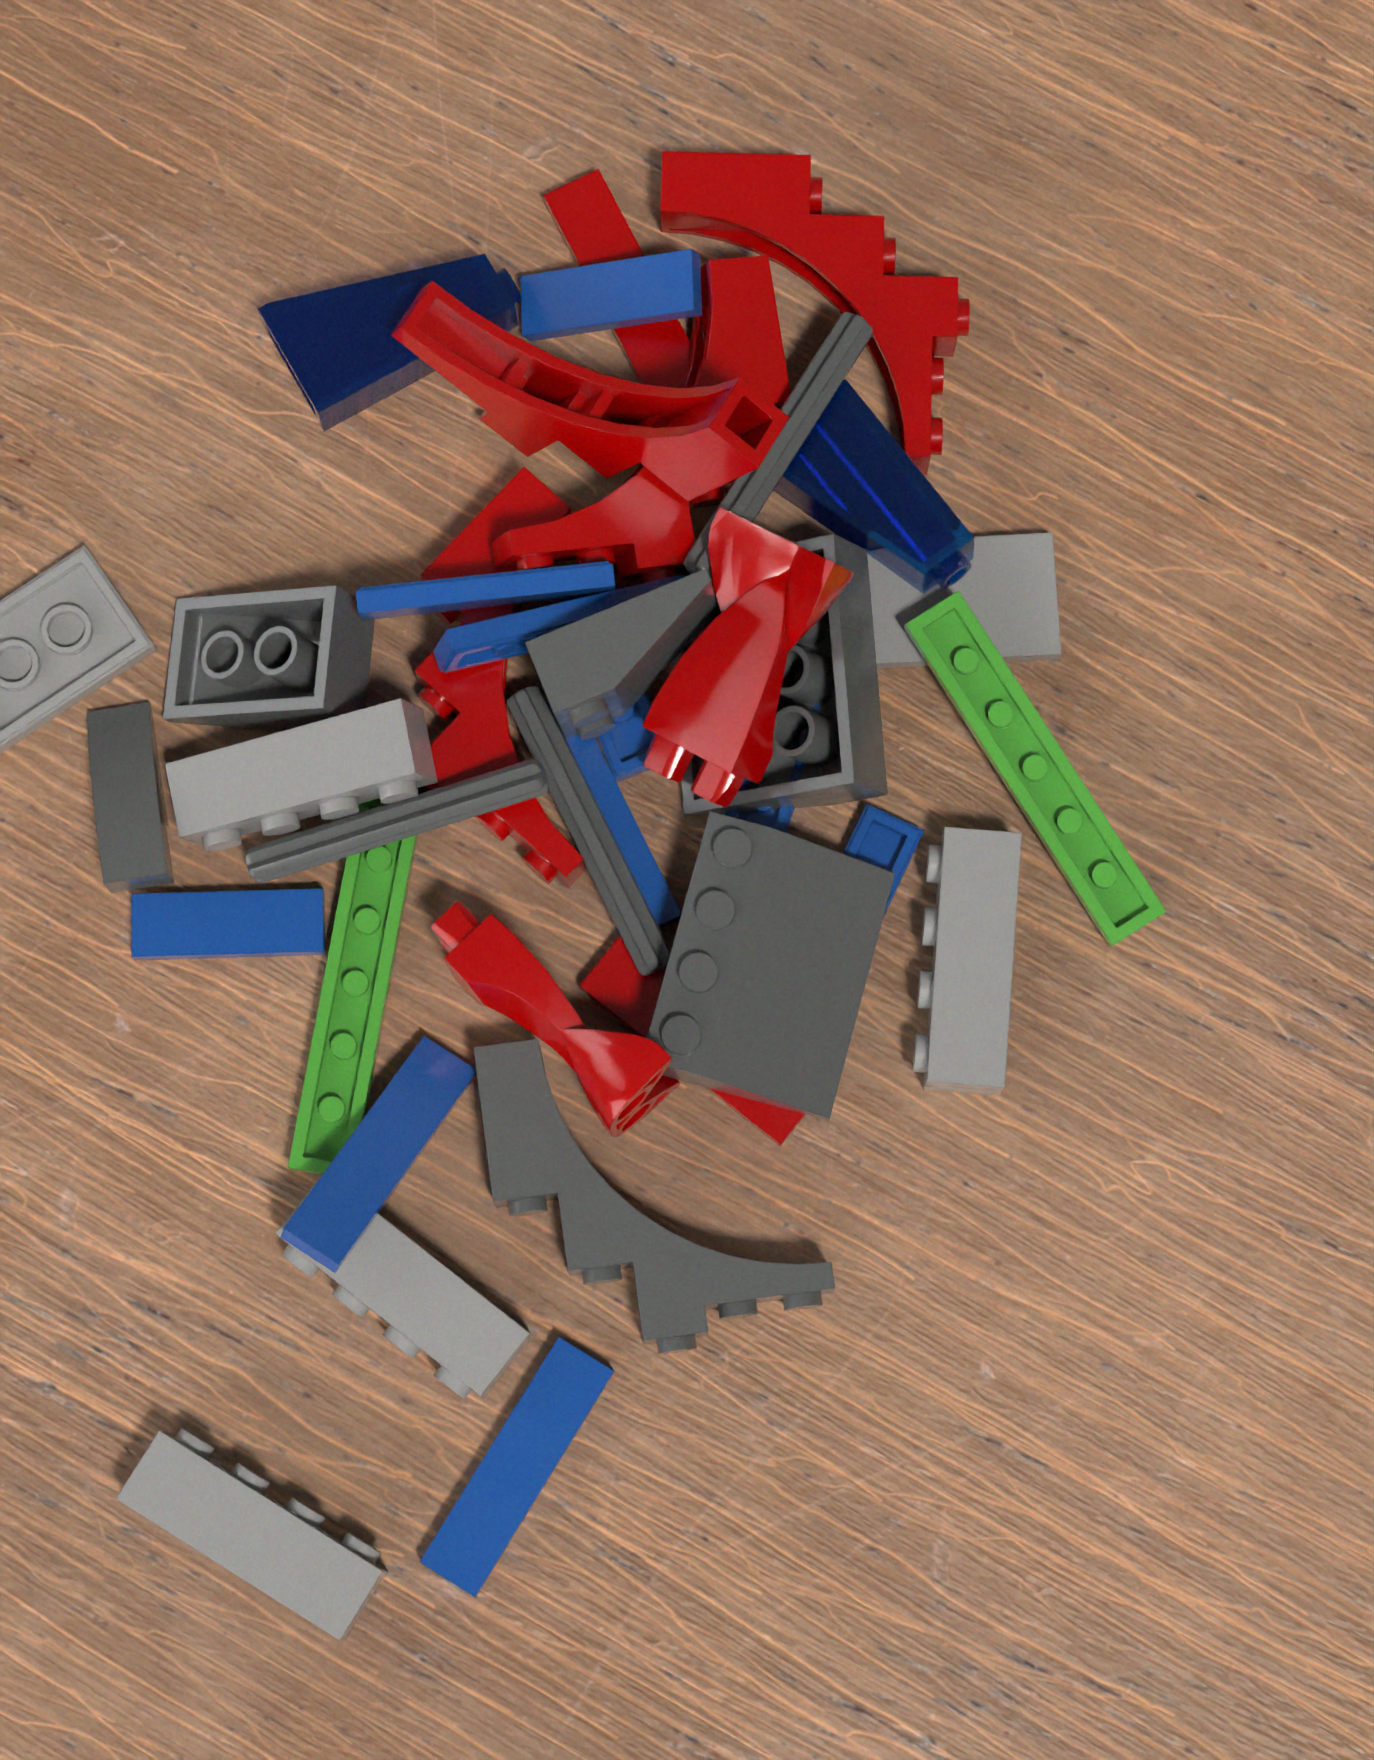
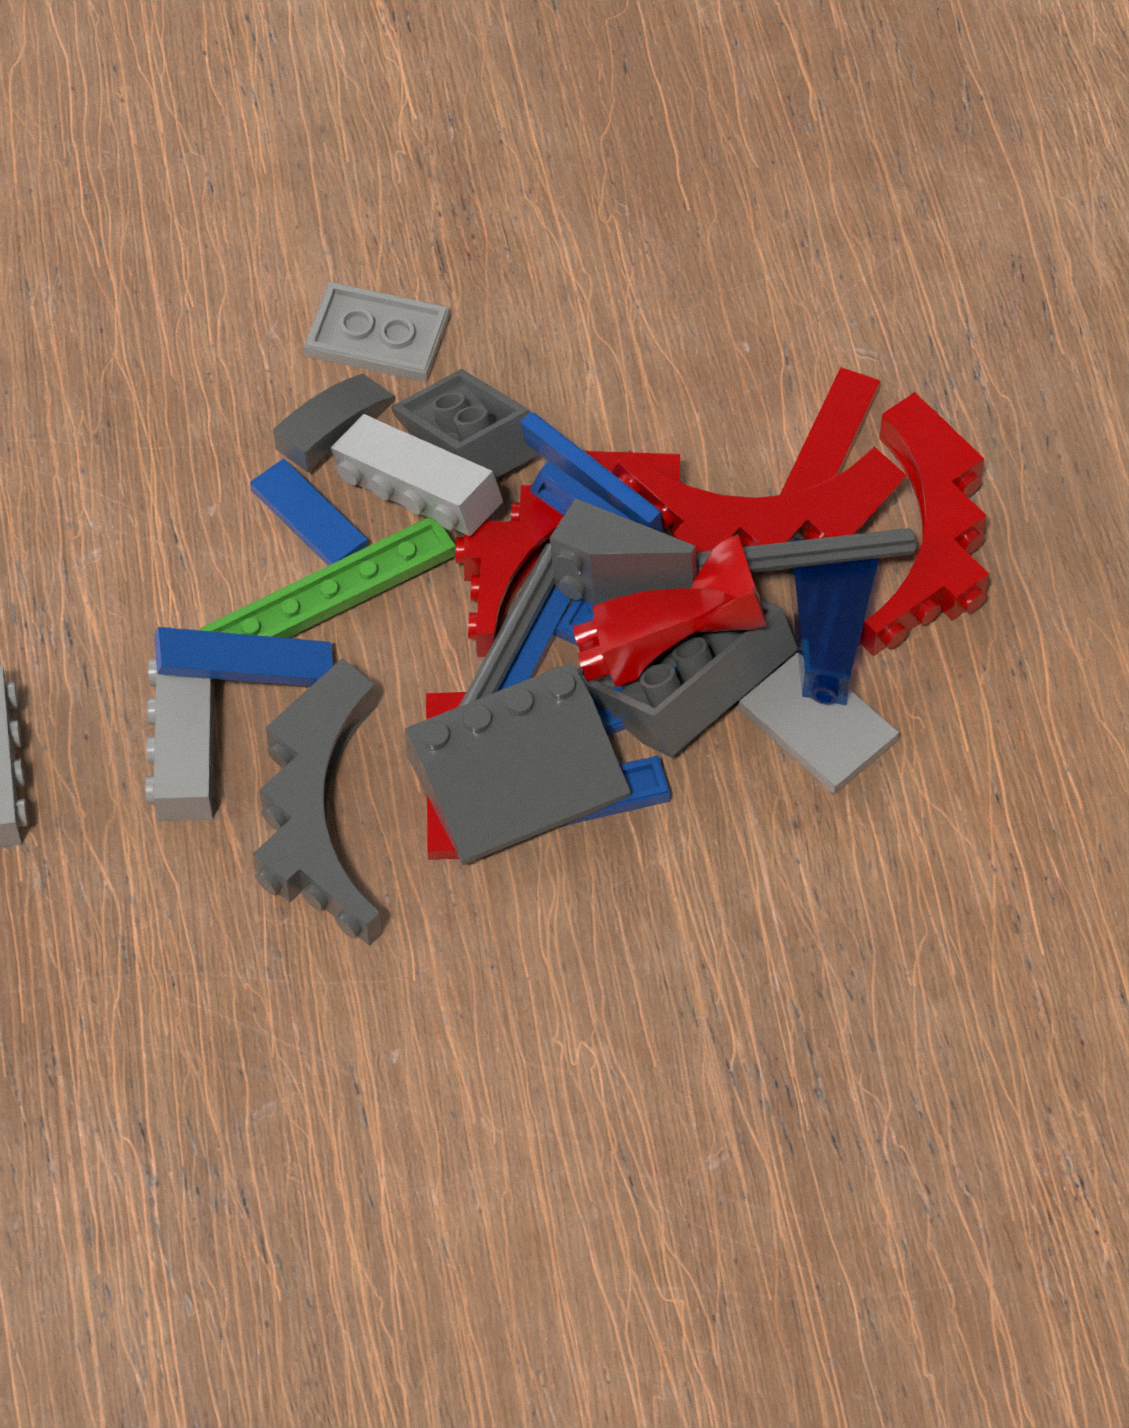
camera: 50 degrees right, 20 degrees down
(342, 340) = (694, 352): clear blue slope -> none
(397, 820) = (432, 534): dark grey axle -> none
(496, 969) = (390, 717): red hips -> none
(517, 1467) = (132, 859): blue tile -> none
(533, 399) = (724, 436): red arch -> none
(611, 295) = (815, 429): blue tile -> none
(970, 961) = (616, 867): light grey brick -> none
(1034, 769) = (754, 818): bright green plate -> none

